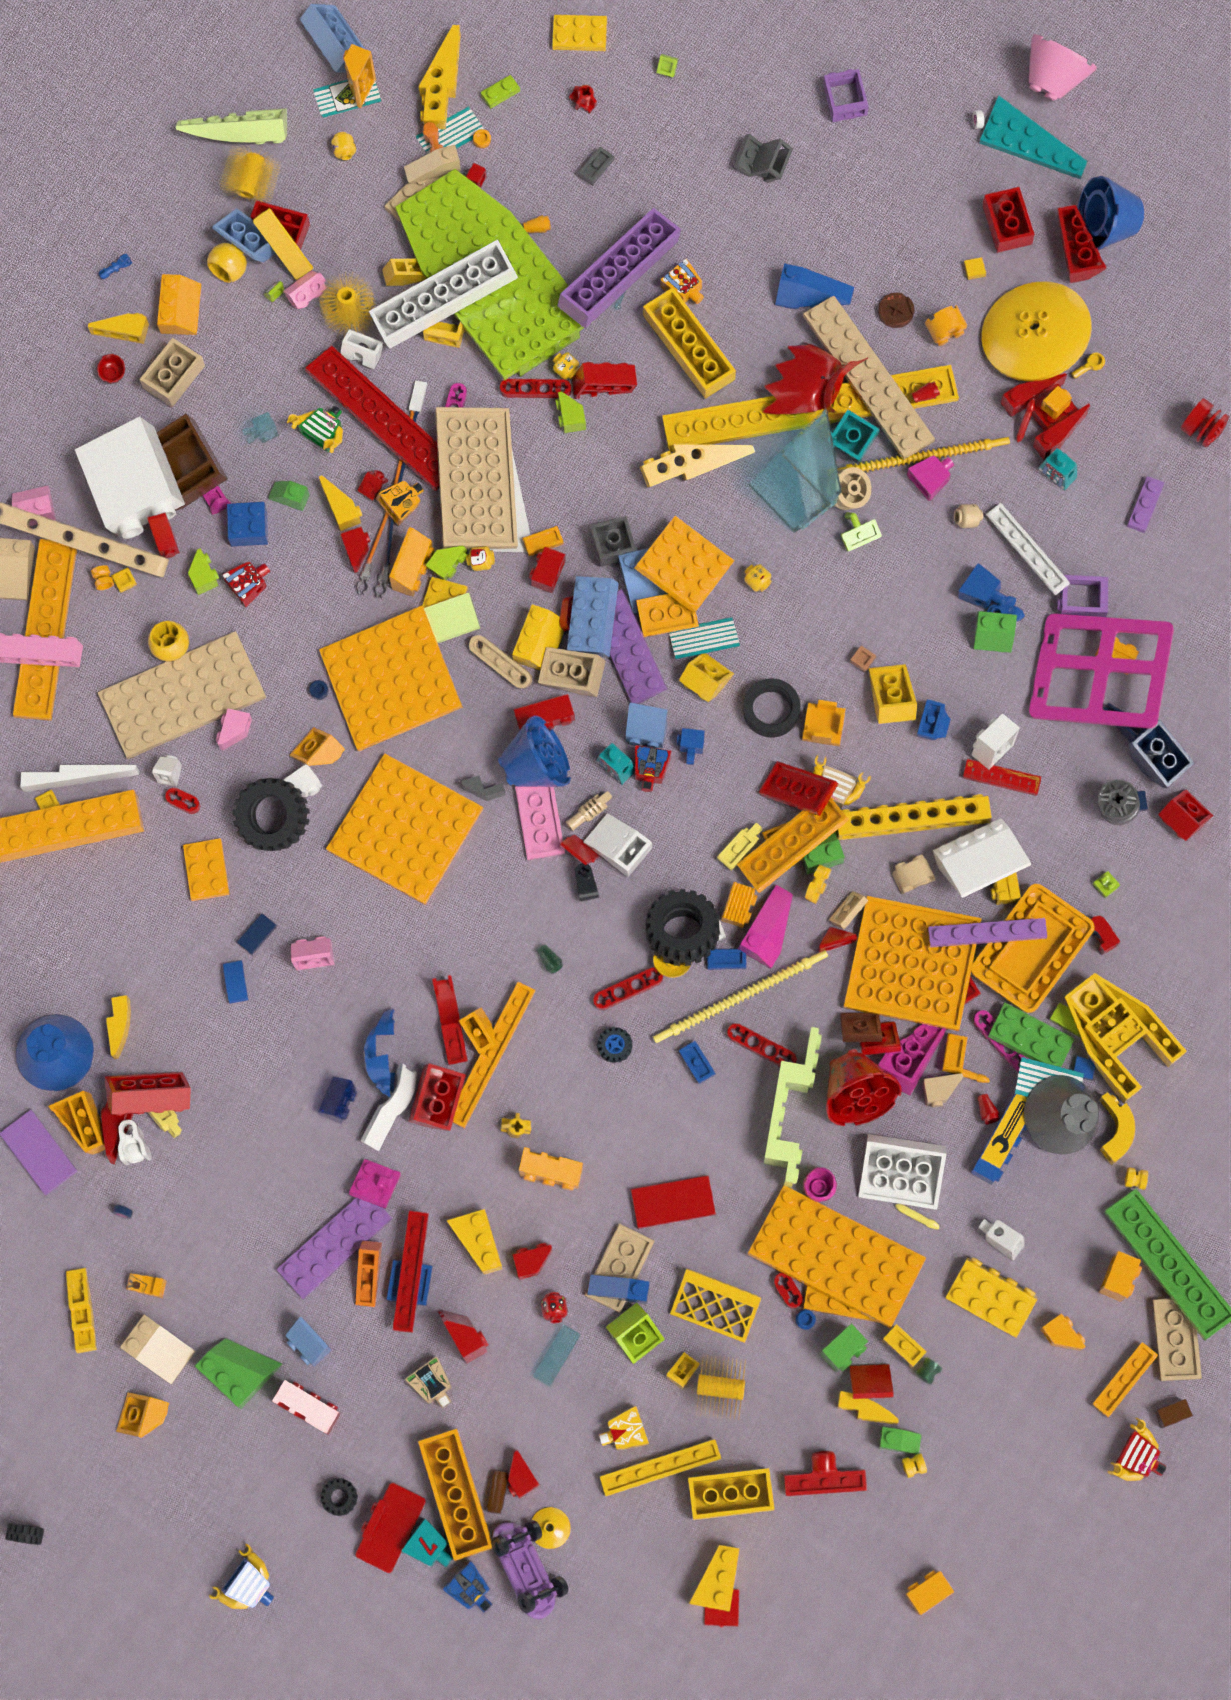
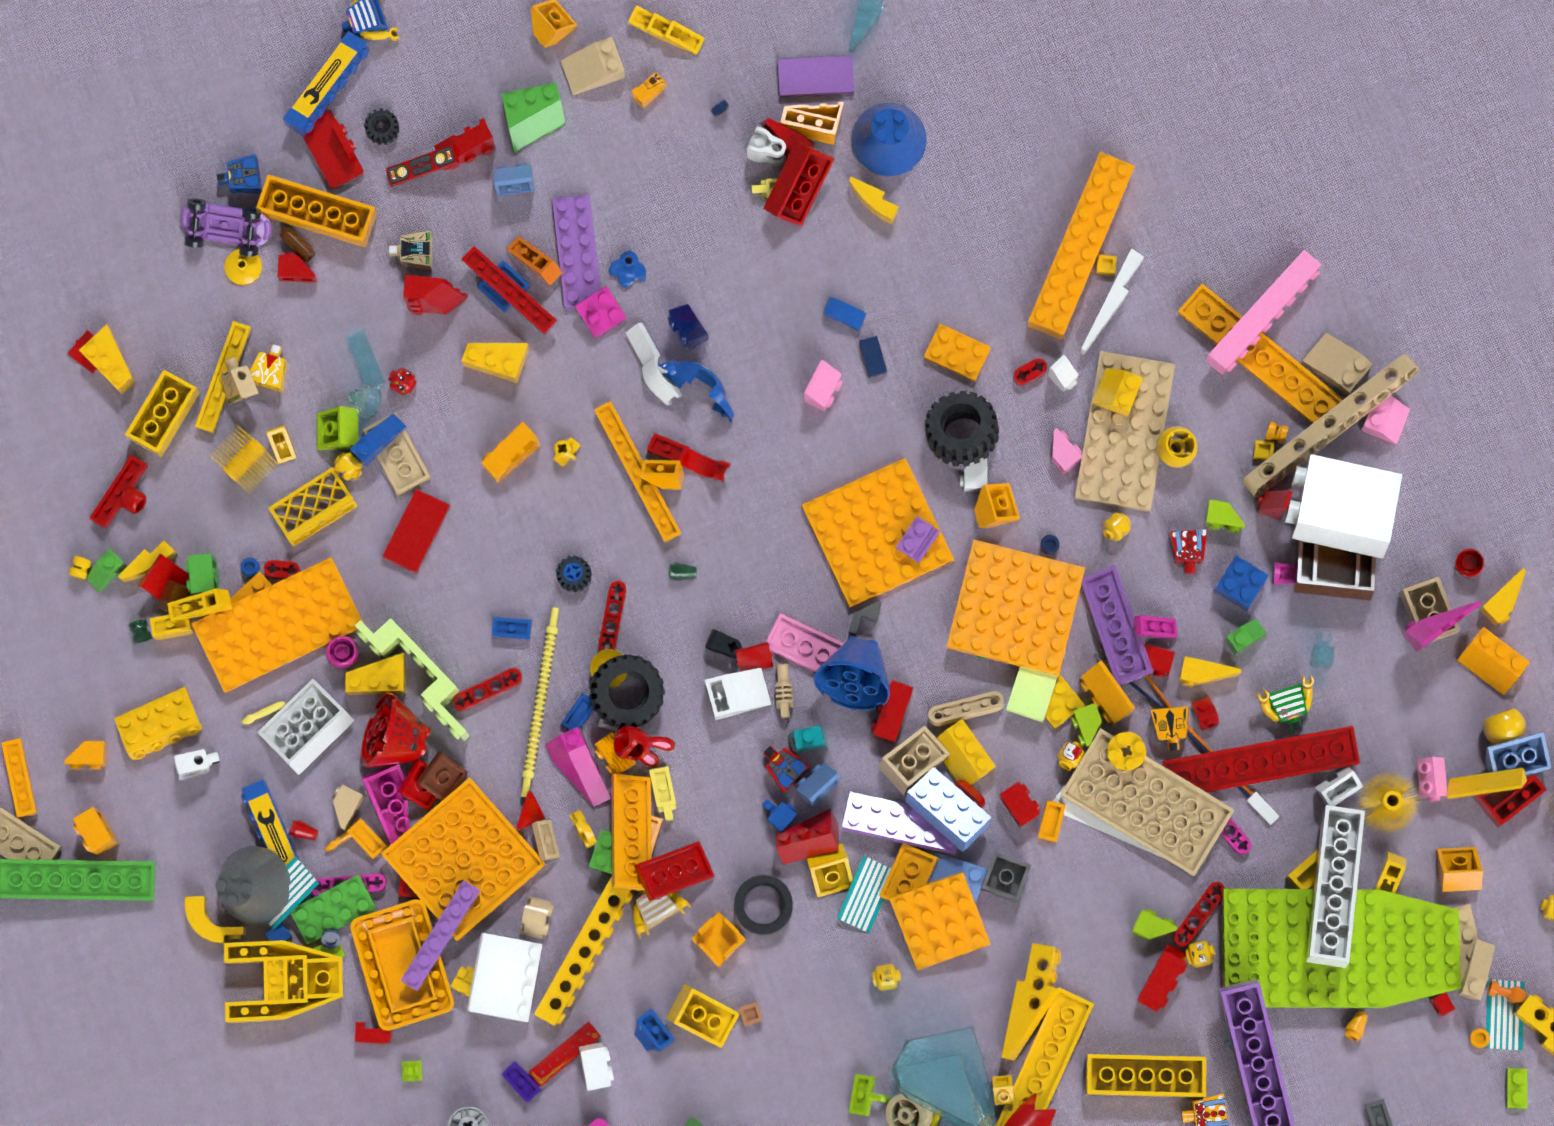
camera: 125 degrees right, 5 degrees up
(152, 716) = (1117, 391): none -> yellow slope
(189, 352) = (1430, 628): none -> dark pink wedge
(268, 646) = (1116, 526): none -> yellow head
(274, 291) = (1451, 752): lime slope -> none
(323, 1186) = (628, 272): none -> blue plate
(331, 559) = (1155, 627): none -> dark pink plate
(333, 1575) = (326, 84): none -> brick
(350, 590) = (1116, 625): none -> medium lavender plate
(350, 1430) = (422, 165): none -> tile
(362, 228) = (1459, 869): none -> light orange slope
(389, 789) = (917, 539): none -> medium lavender plate
(428, 1546) = (296, 166): teal torso -> none
(437, 1097) = (632, 403): red slope -> none
(440, 520) = (1131, 761): none -> yellow plate
(531, 1262) = (450, 387): red slope -> none
(593, 1326) = (366, 400): none -> clear light blue hair
(658, 1444) = (237, 382): none -> tan torso
(660, 1299) = (348, 466): none -> yellow head
(694, 706) = (809, 838): none -> red wedge
(720, 886) = (635, 745): none -> red piece
(777, 436) = (1003, 1089): none -> yellow bracket
(819, 1139) = (378, 677): none -> yellow wedge
(872, 1328) = (200, 605): none -> yellow slope
(879, 1361) = (172, 592): none -> reddish brown piece
(1049, 793) = (521, 1082): none -> dark purple plate
(1055, 1020) = (331, 938): none -> tile
(1136, 1178) = (161, 907): yellow wheel -> none

